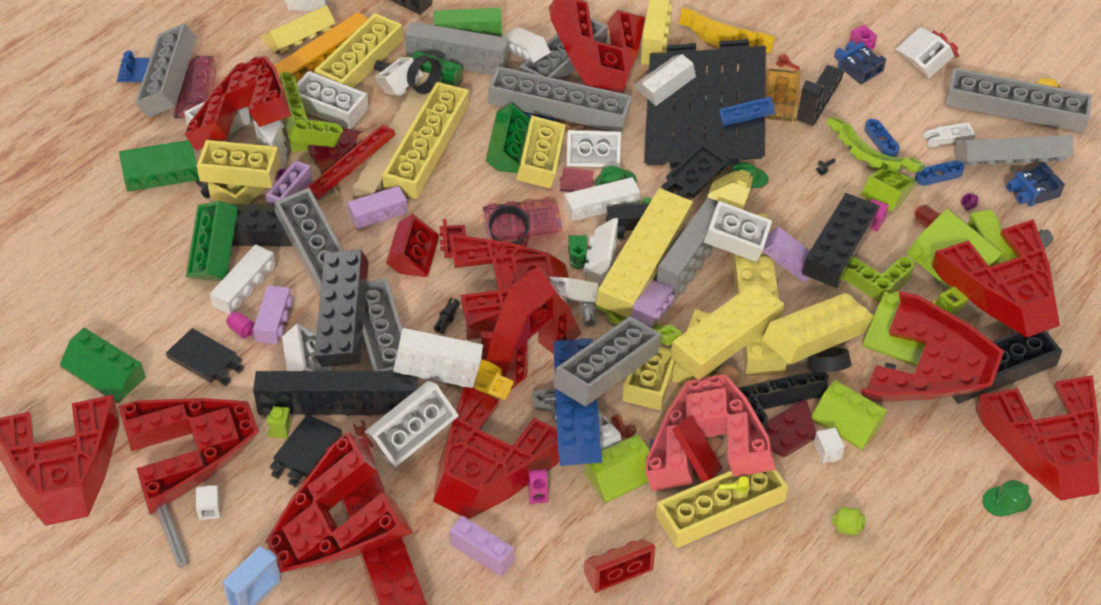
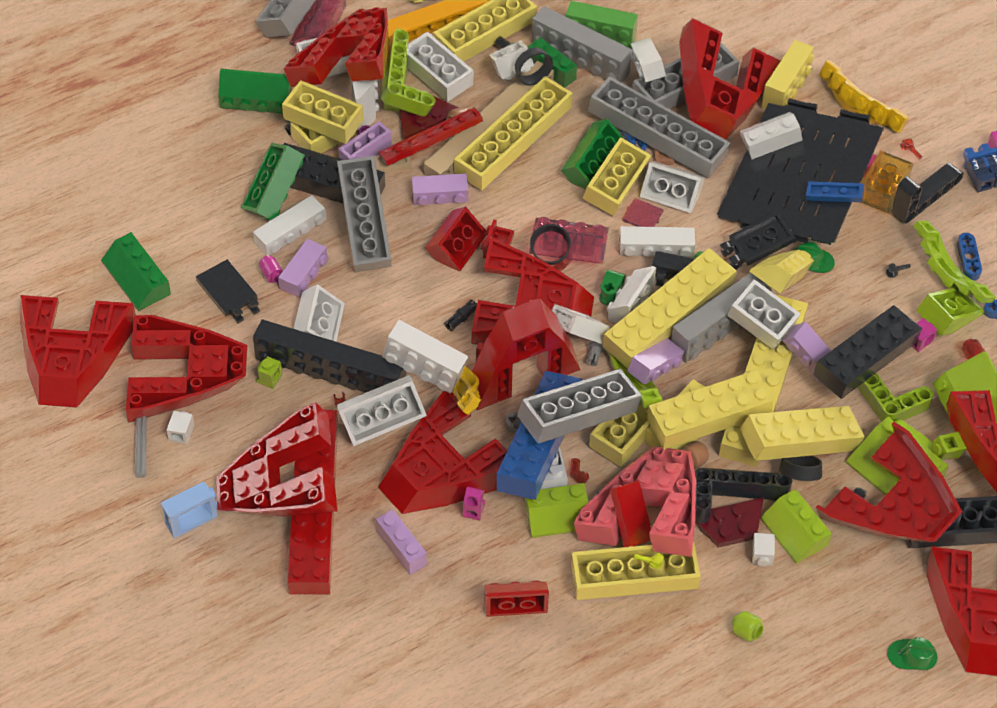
camera: 20 degrees right, 5 degrees up
(304, 449) = (282, 402): black tile -> none
(341, 308) = (361, 281): brick -> none
(381, 326) = (392, 301): light grey brick -> none
(612, 174) = (680, 219): green piece -> none

